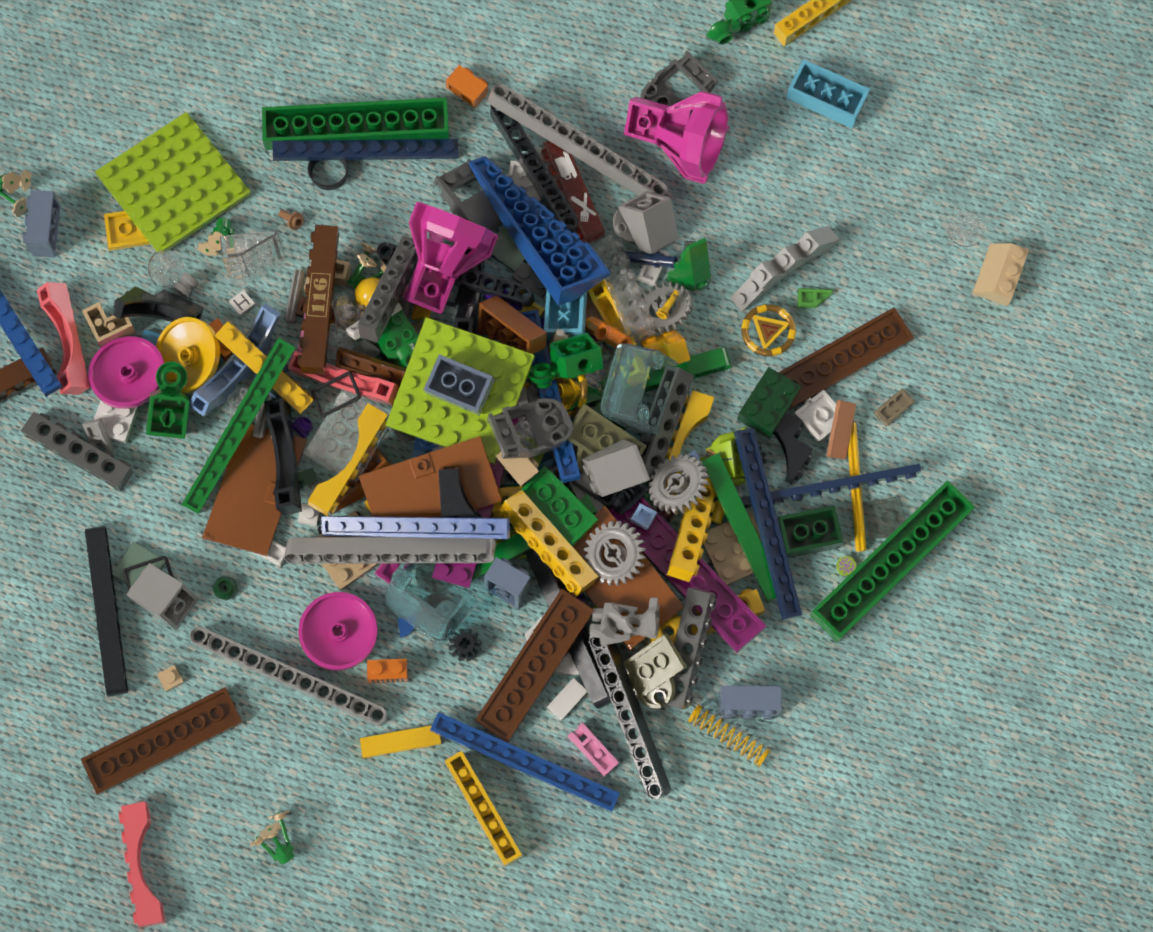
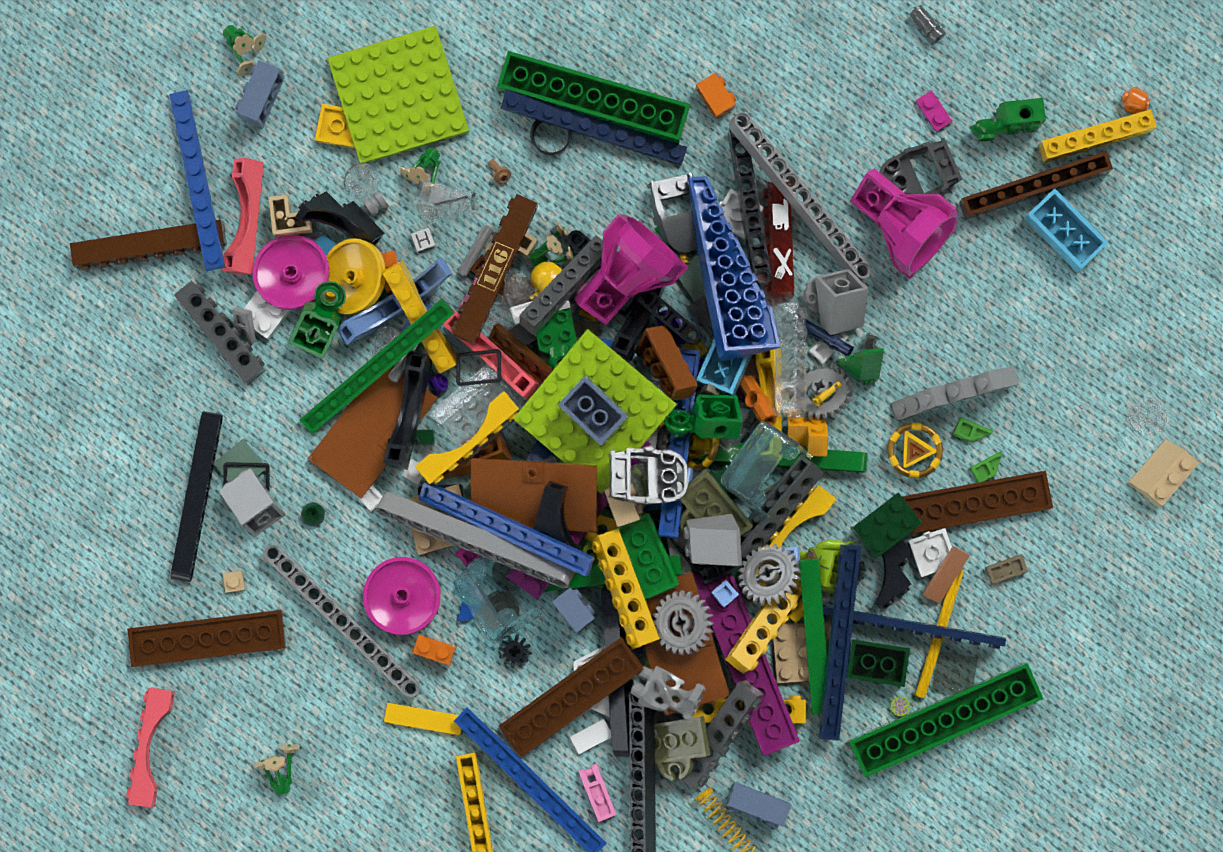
camera: 25 degrees right, 10 degrees up
(669, 35) = (933, 111): none -> dark pink plate
(784, 64) = (1035, 185): none -> reddish brown brick
(839, 325) = (987, 468): none -> bright green tile

